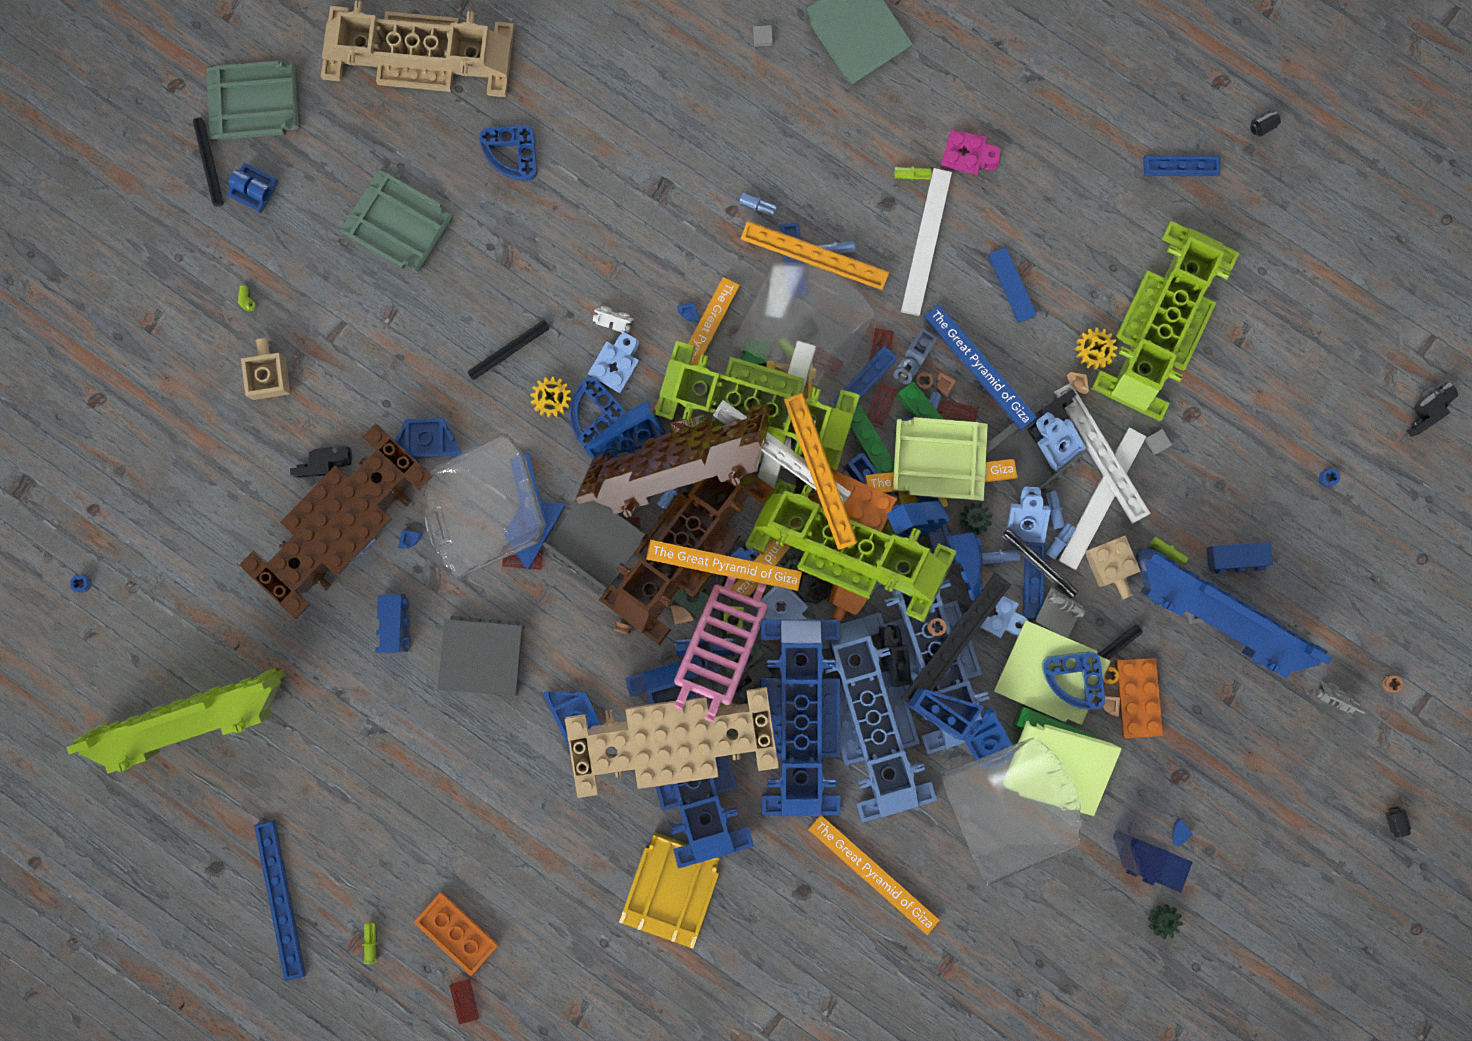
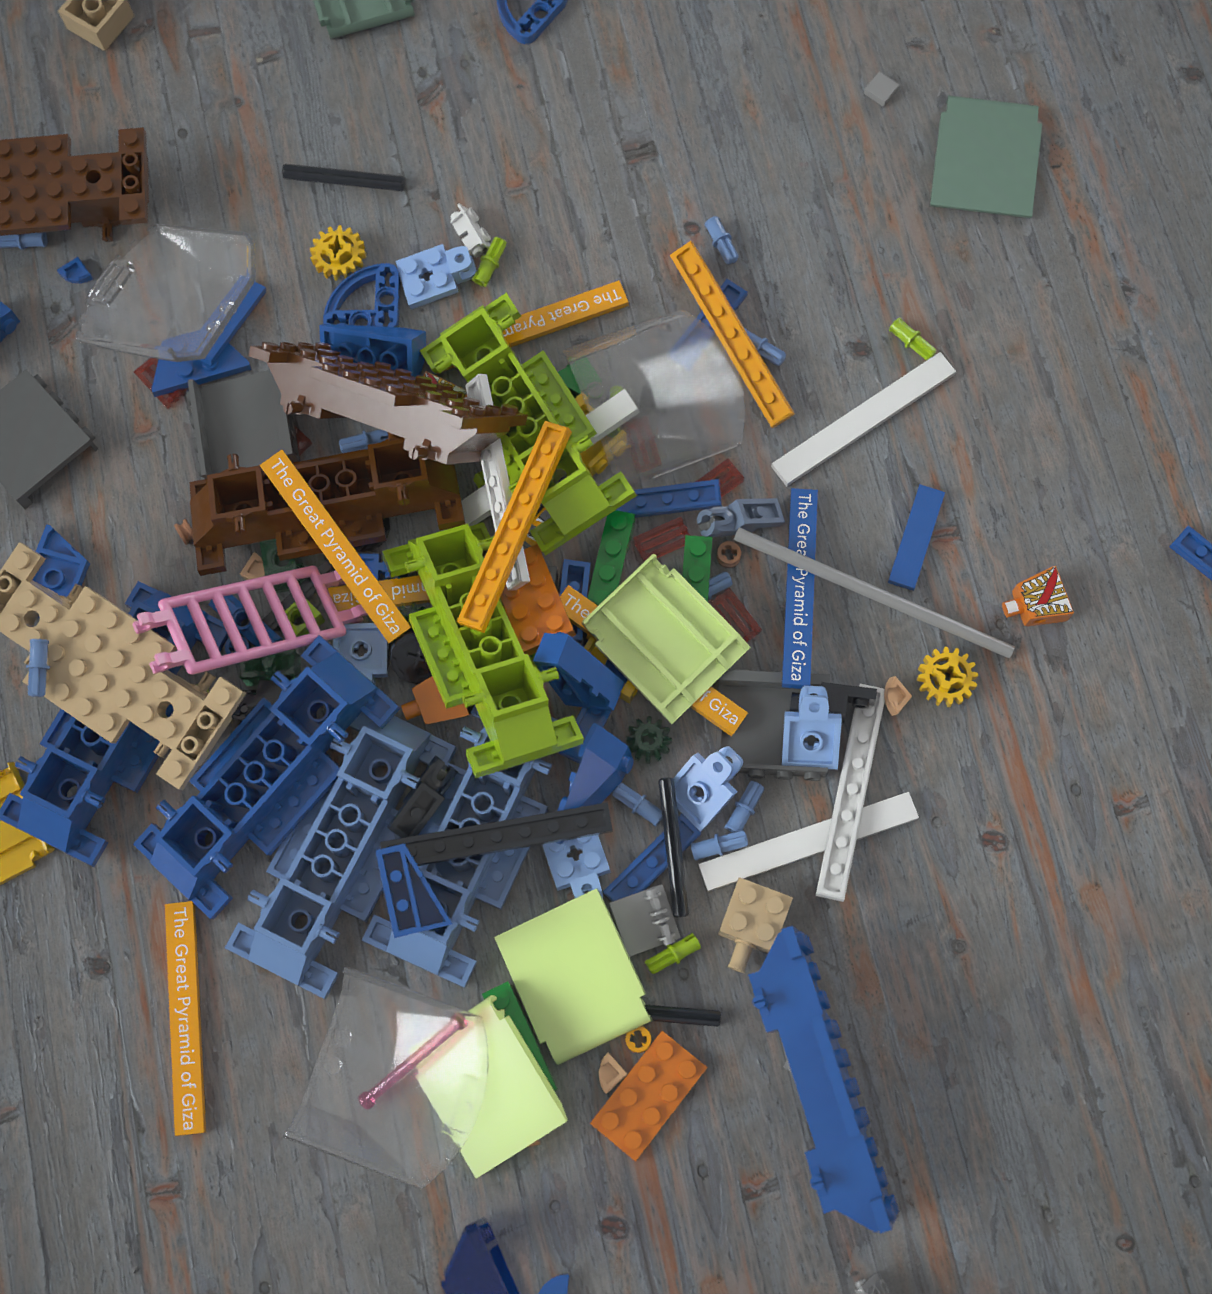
camera: 45 degrees right, 10 degrees down
(323, 460) = (82, 131): black plate -> none
(427, 438) = (183, 192): blue wing -> none
(641, 328) = (489, 262): none -> lime axle
(643, 774) = (37, 667): none -> medium blue axle
(688, 312) = (553, 286): blue tile -> none
(941, 623) = (500, 805): nougat bush -> none
(944, 384) = (748, 577): nougat tile -> none
(980, 154) = (1002, 378): dark pink plate -> none
(987, 736) = (438, 971): blue wing -> none
(1019, 337) = (874, 593): none -> light grey piece
(1026, 752) = (457, 1022): none -> clear pink bar
(1081, 666) = (610, 993): blue beam -> none
(1088, 618) = (673, 953): none -> lime axle
(1106, 264) = (1040, 600): none -> torso
(1158, 442) = (928, 836): light grey tile -> none
(1166, 320) = (1054, 712): lime piece -> none
(1168, 550) = (829, 963): lime pin -> none
(1240, 557) = (906, 1042): blue brick -> none
(1323, 479) = (1096, 1040): blue bush -> none

